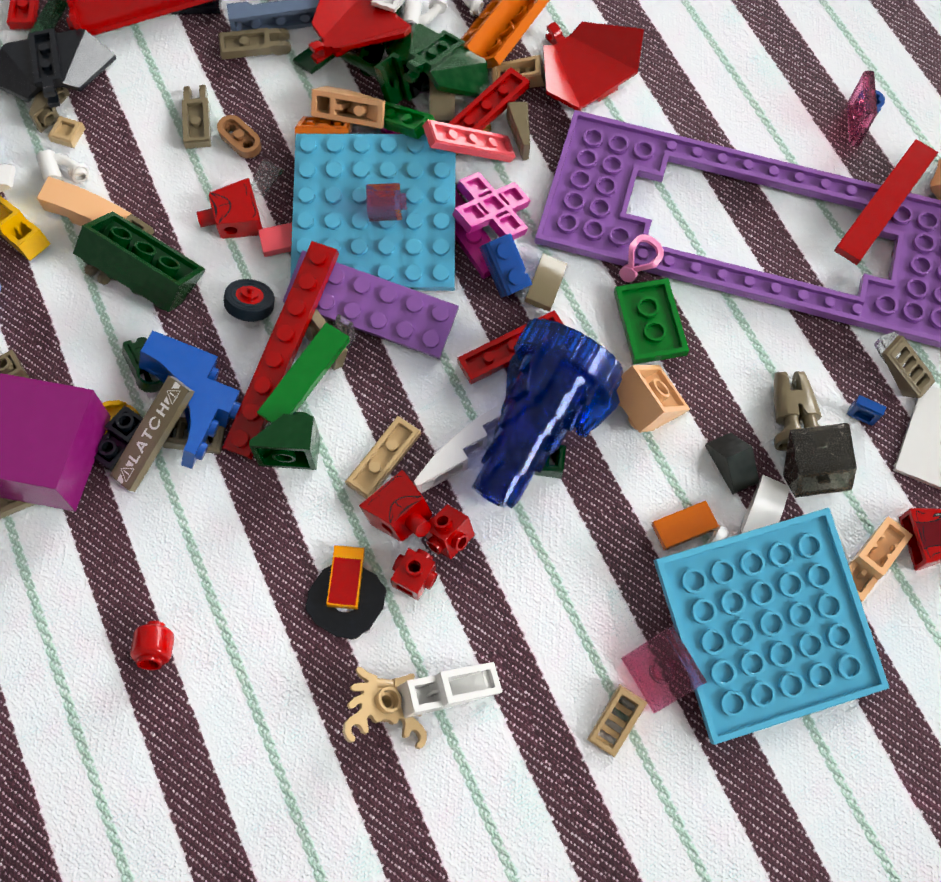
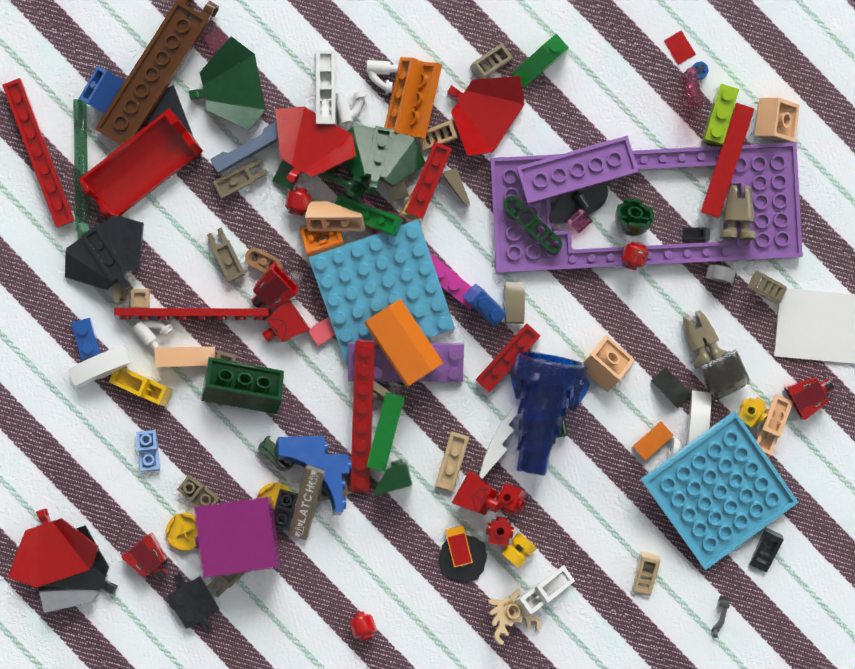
camera: 20 degrees left, 20 degrees up
(116, 160) = (184, 313): none -> red plate
(235, 159) = (273, 288): none -> torso
(249, 300) = (324, 386): black wheel -> none
(311, 77) = (298, 201): none -> red head
(375, 266) = (403, 342): none -> orange slope
(385, 202) = (391, 292): clear pink brick -> none
(422, 612) = (516, 556): none -> yellow wheel
(468, 141) = (429, 219): coral tile -> none
(491, 206) = (460, 260): plate -> none
(603, 194) = (529, 227): none -> dark green beam
(606, 15) = (478, 71): none -> dark tan slope
(629, 272) = (566, 274): bright pink piece -> none
(651, 321) = (591, 306): green plate -> none
(663, 669) = (664, 538): clear pink tile -> none
(667, 213) = (580, 220): none -> clear pink tile
(675, 191) = (588, 199): none -> black shield
(678, 30) = (541, 60): none -> green slope
(684, 148) = (577, 169): none -> medium lavender plate
(731, 266) = (634, 255): none -> red head
(731, 811) = (723, 602): none -> dark grey piece
(740, 229) = (633, 217): none -> dark green cylinder
(816, 732) = (760, 547): none -> black slope
(821, 278) = (696, 233): none -> black piece
(844, 334) = (720, 273): none -> light grey piece
(849, 73) = (679, 47): none -> red sticker
(853, 527) = (746, 411): none -> yellow brick
(866, 410) = (746, 324): blue tile -> none
(890, 149) = (720, 115): none -> lime brick
(890, 256) = (739, 210): none -> dark tan piece

